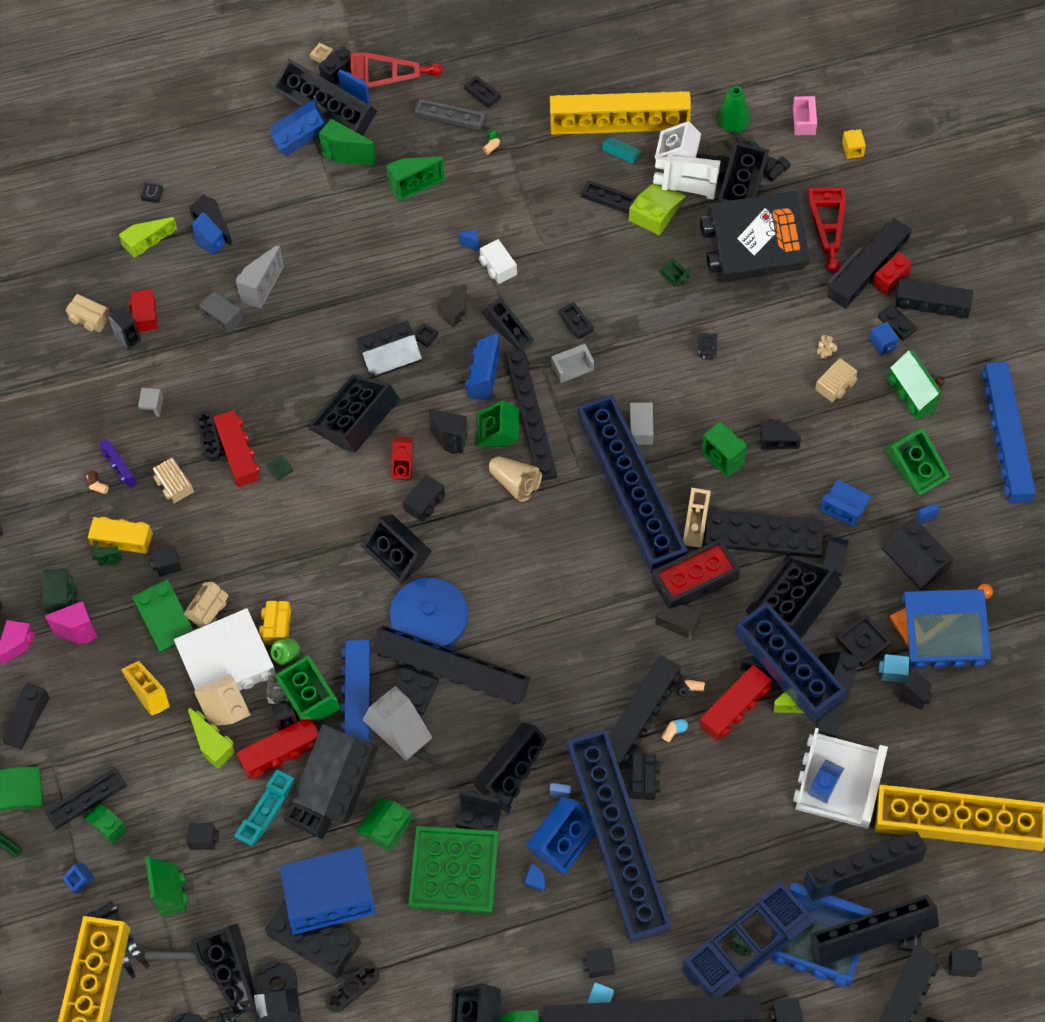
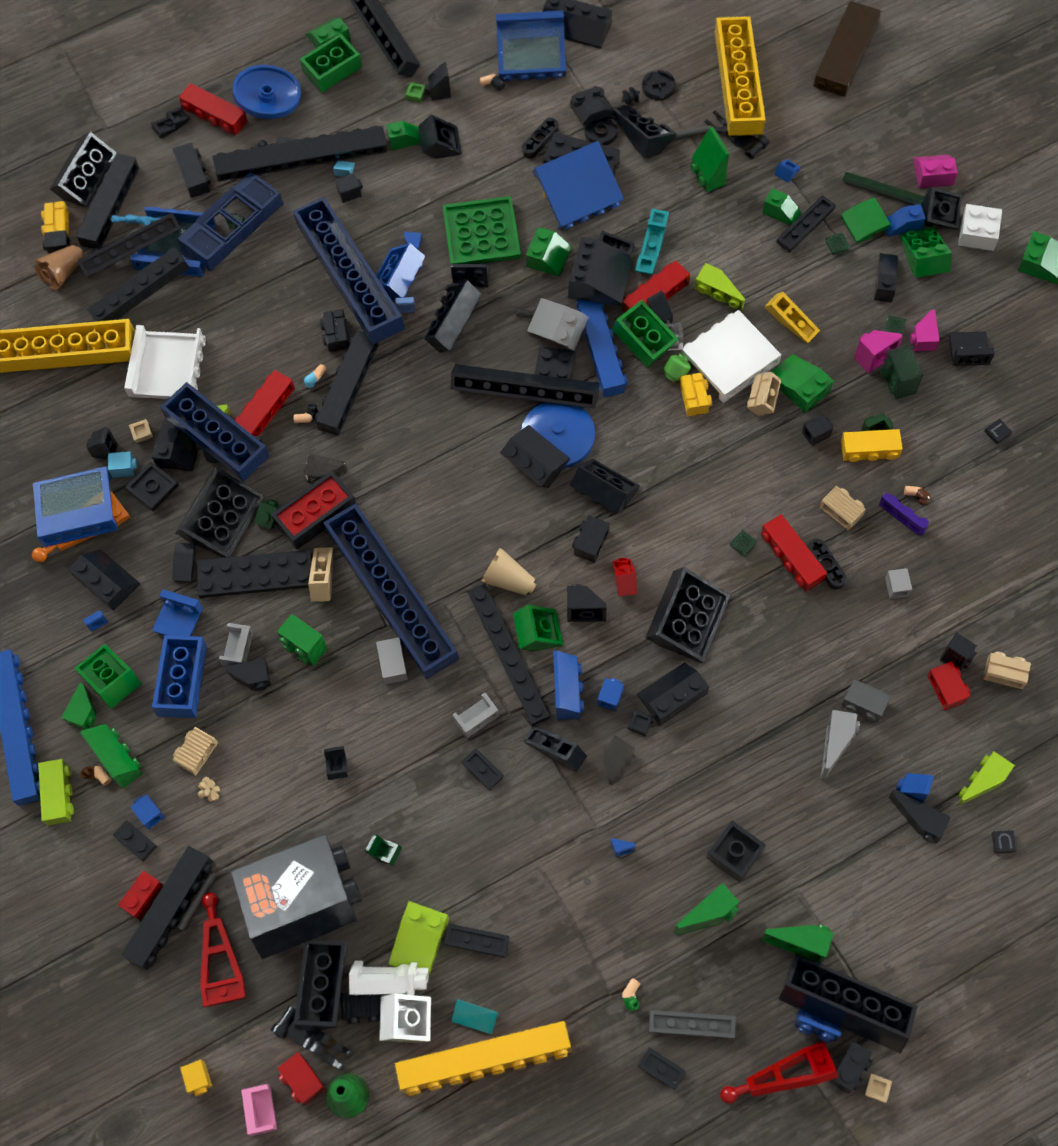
camera: 170 degrees right, 5 degrees up
(42, 656) = (895, 324): none -> clear green plate
(61, 766) = (837, 243): none -> clear green plate
(202, 836) = (696, 213): black brick -> none
(222, 701) = (714, 313): tan slope -> none
(298, 128) = (865, 953): blue slope -> none
(375, 216) = (735, 851): none -> black brick
(445, 358) = (610, 694): none -> blue brick
(459, 583) = (535, 456): none -> black slope
(498, 261) = (584, 824): white brick -> none
(743, 588) = (264, 513): none -> dark green bracket
(768, 129) = (301, 1079): none -> red brick
(789, 464) = (237, 644): none -> light grey panel
(826, 781) = (176, 352): blue slope -> none
(846, 442) = (179, 676): none -> blue brick
(862, 962) = (134, 219): none -> dark azure piece
(872, 704) = (141, 431): none -> tan plate
(934, 298) = (93, 870): black brick -> none
(944, 433) = (80, 709): none -> green slope
(960, 926) = (58, 266): none -> medium nougat cone
(965, 995) = (55, 217): none -> yellow brick
(968, 369) = (55, 792): none -> lime brick

